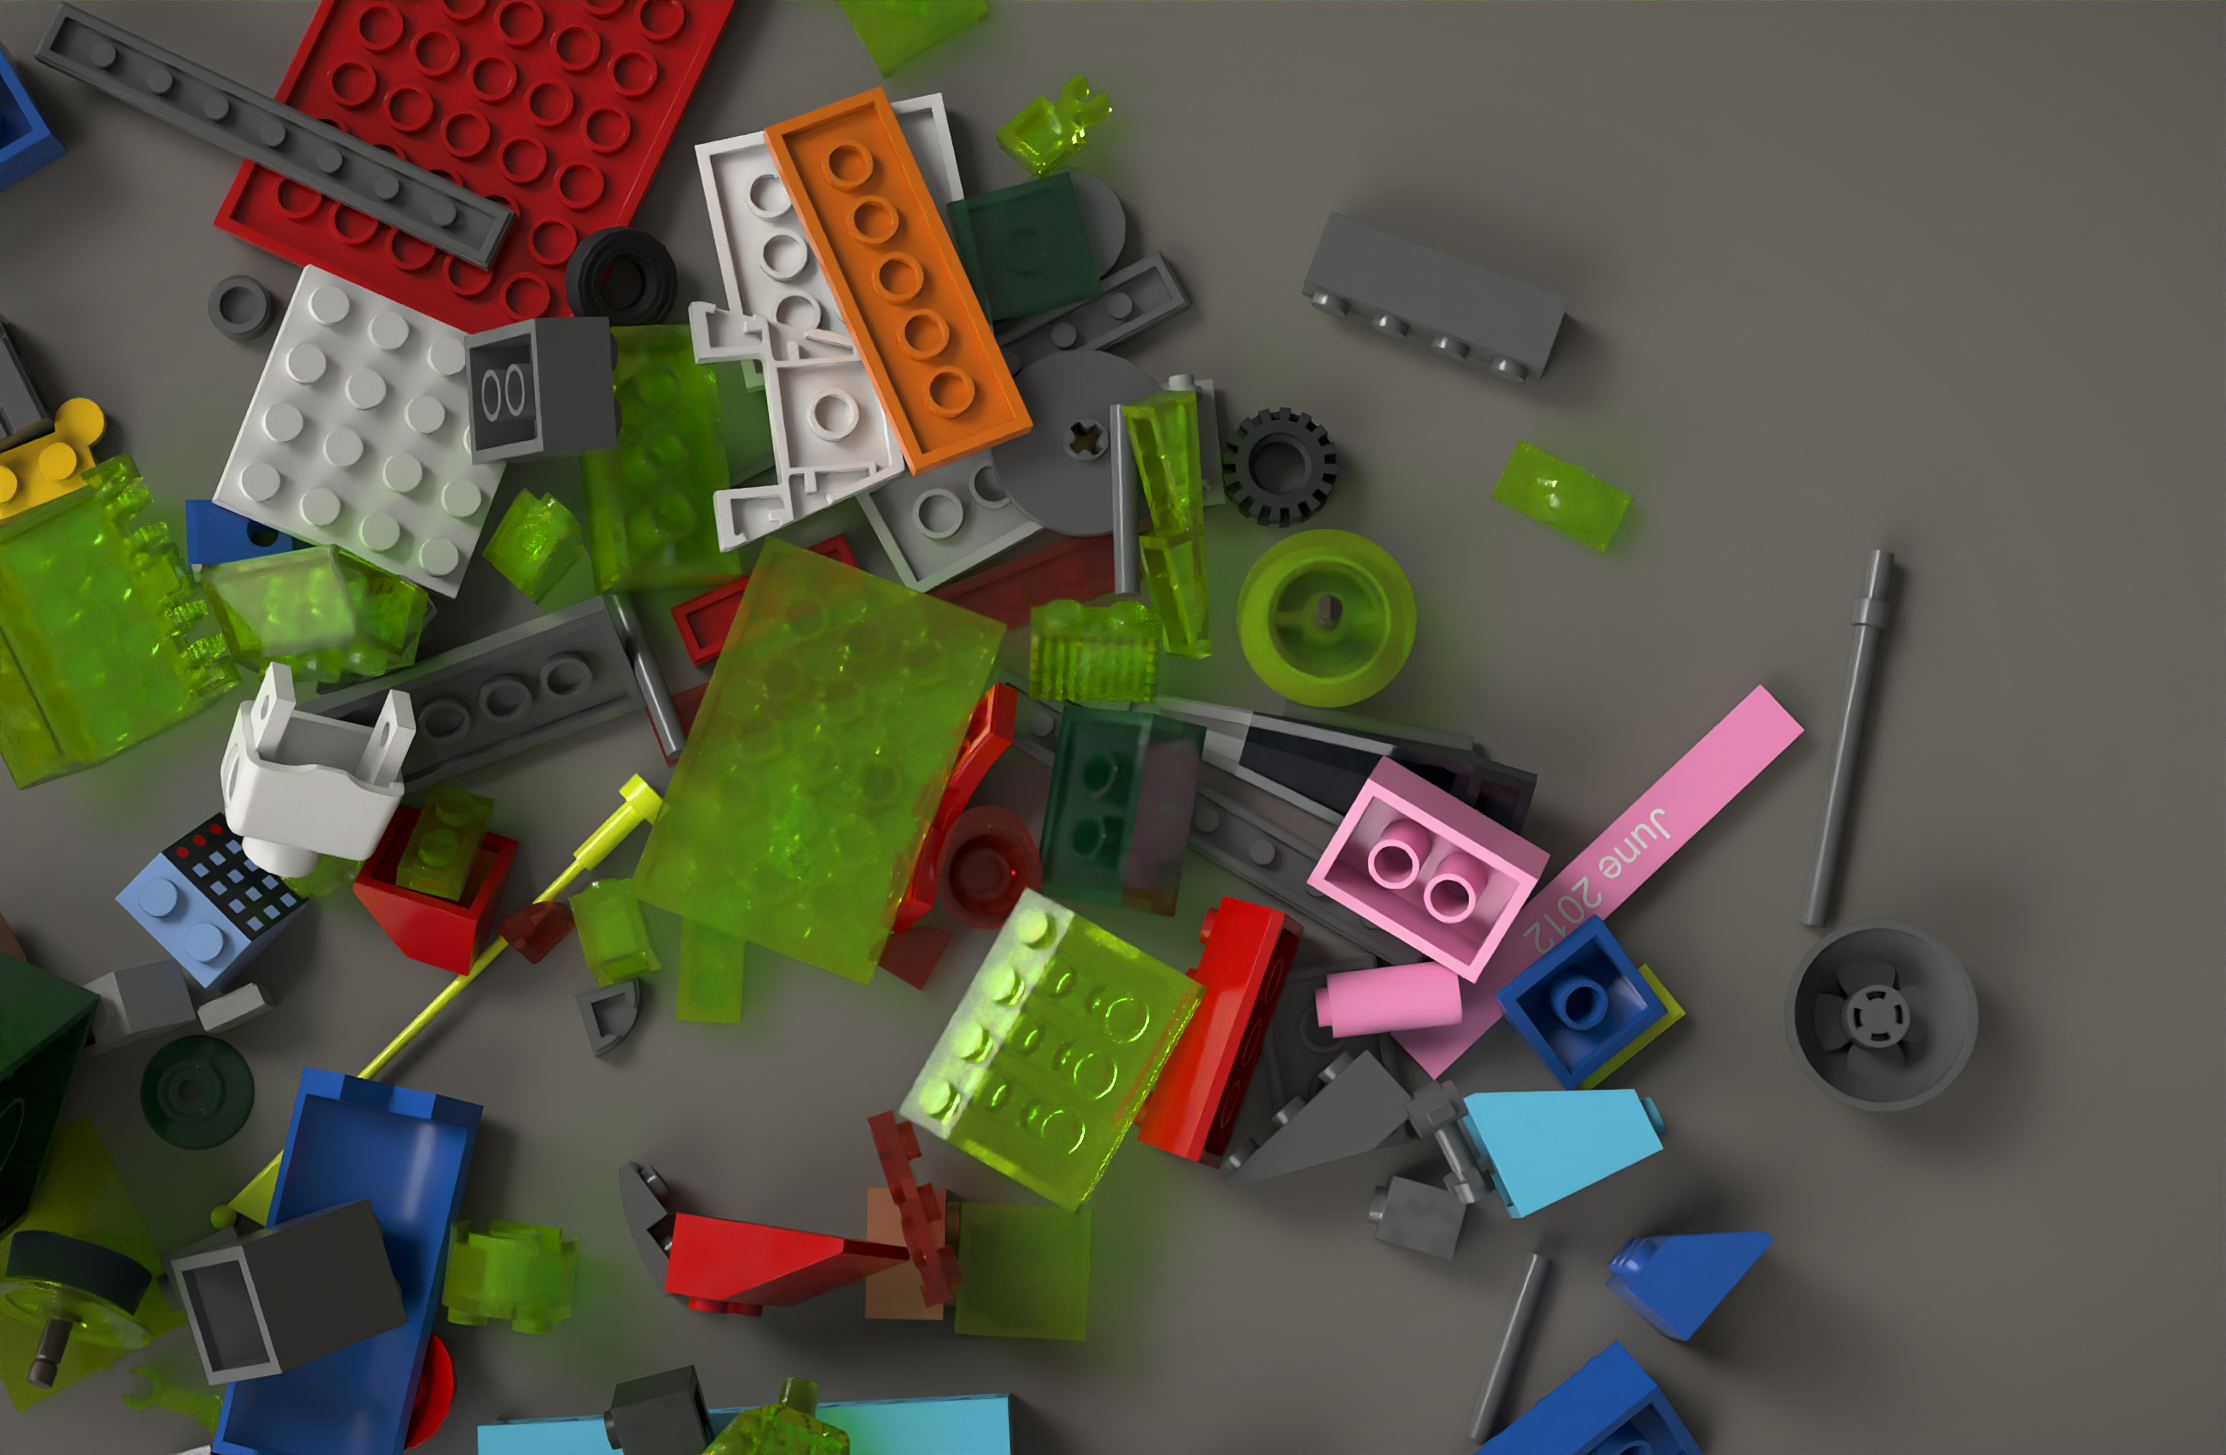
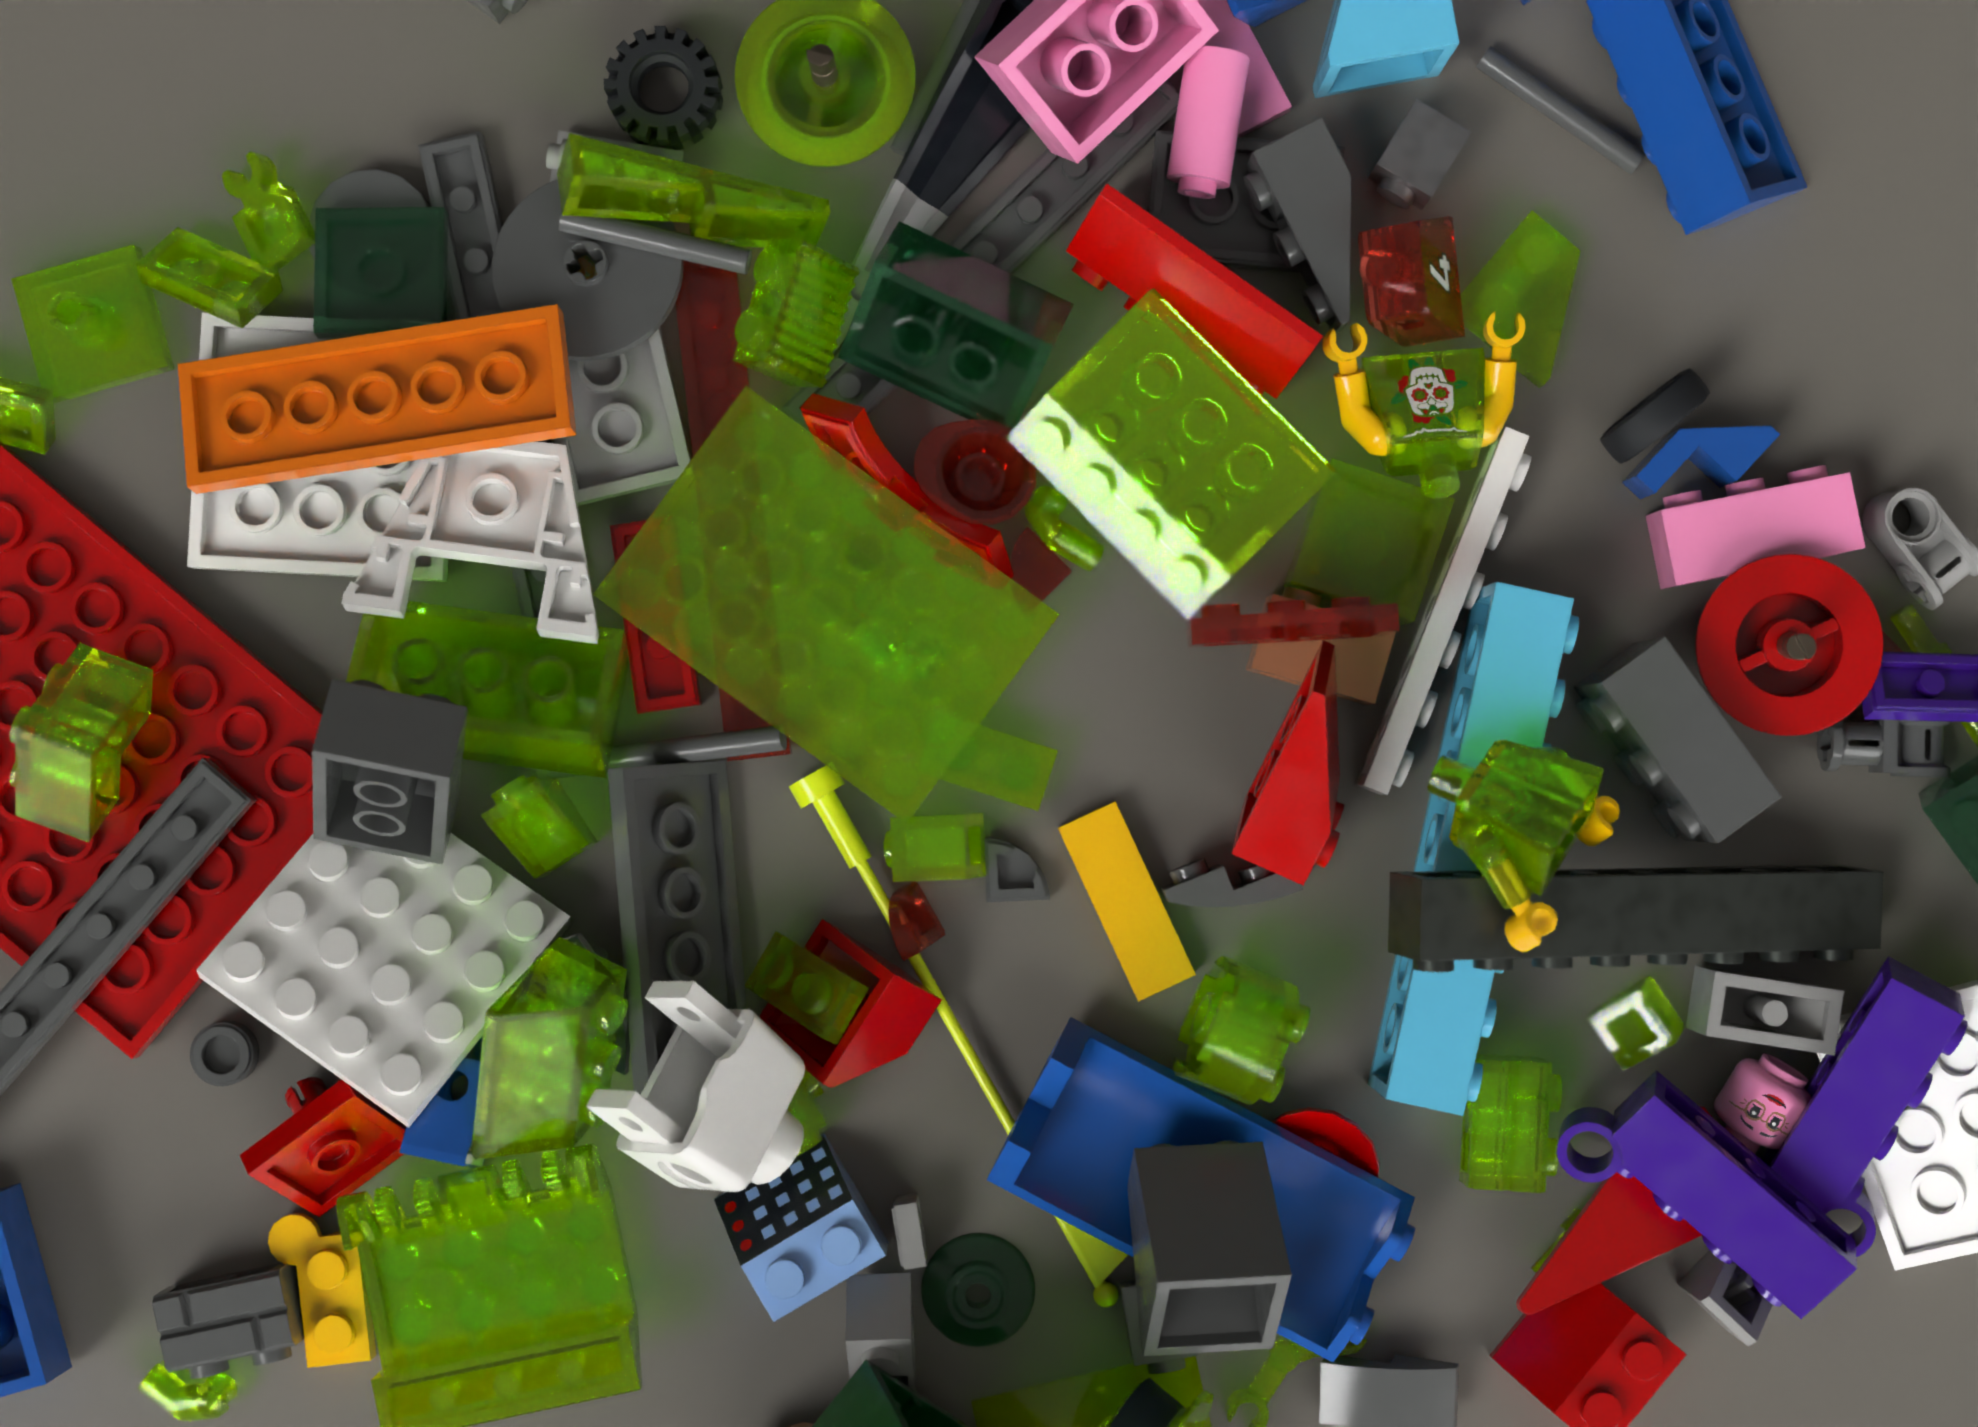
camera: 80 degrees left, 5 degrees up
(175, 430) = (326, 1147): none -> red tile
(498, 92) = (75, 740): none -> clear neon green brick
(600, 250) = (288, 639): black tyre -> none
(612, 1132) = (1126, 901): none -> yellow tile
(947, 1364) = (1455, 588): none -> white plate
(951, 966) = (1059, 535): none -> clear neon green arm
(975, 91) = (209, 277): none -> clear neon green plate
(1169, 1291) = (1426, 408): none -> torso
(1292, 1241) = (1412, 276): none -> clear red torso
(1312, 1360) = (1527, 276): none -> clear neon green wing
(1437, 1112) = (1333, 99): dark grey bar -> none

